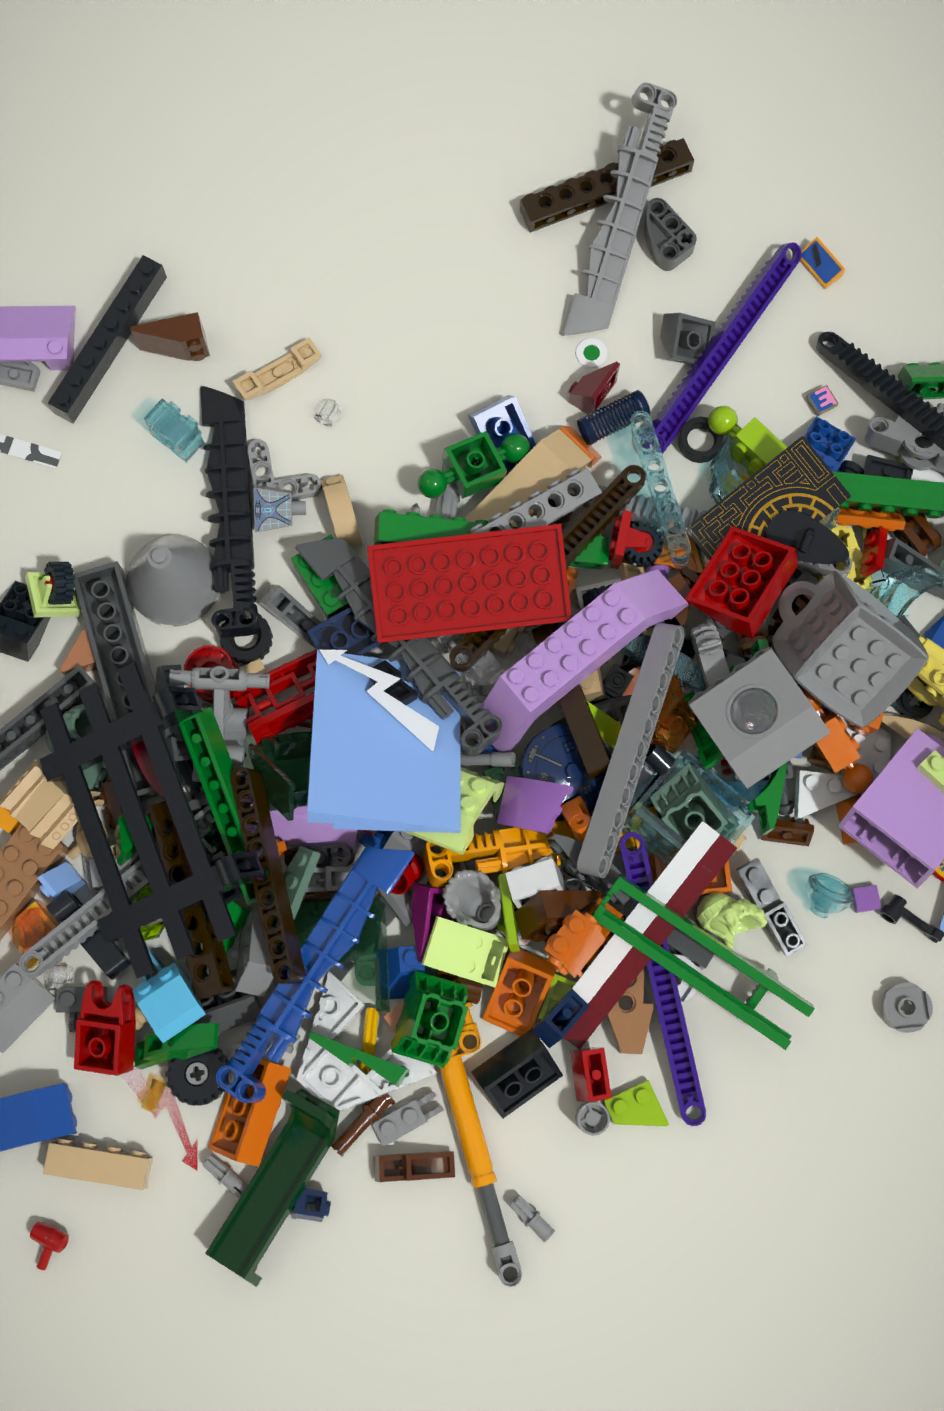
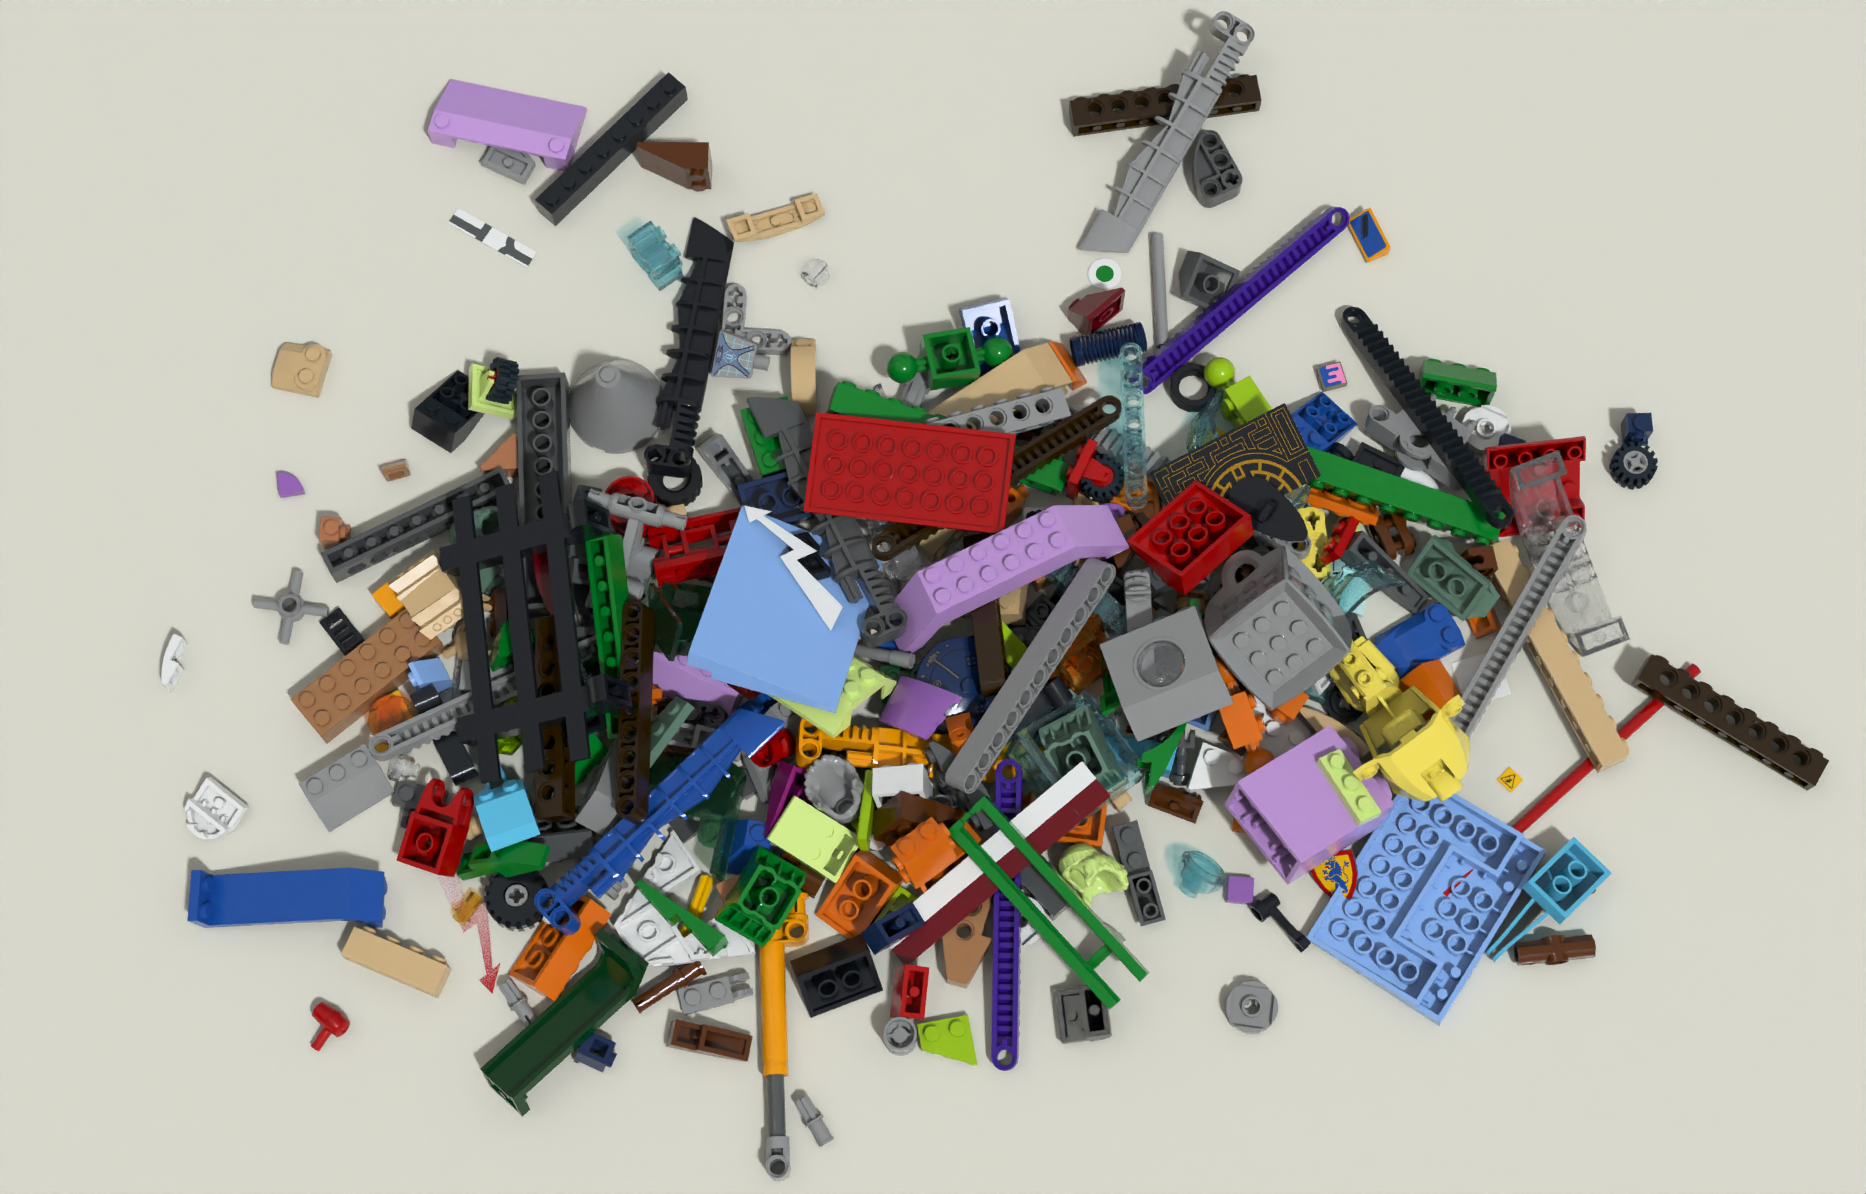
camera: 15 degrees right, 5 degrees down
(646, 356) = (1159, 289): none -> light grey piece
(755, 1055) = (1082, 1016): none -> black brick

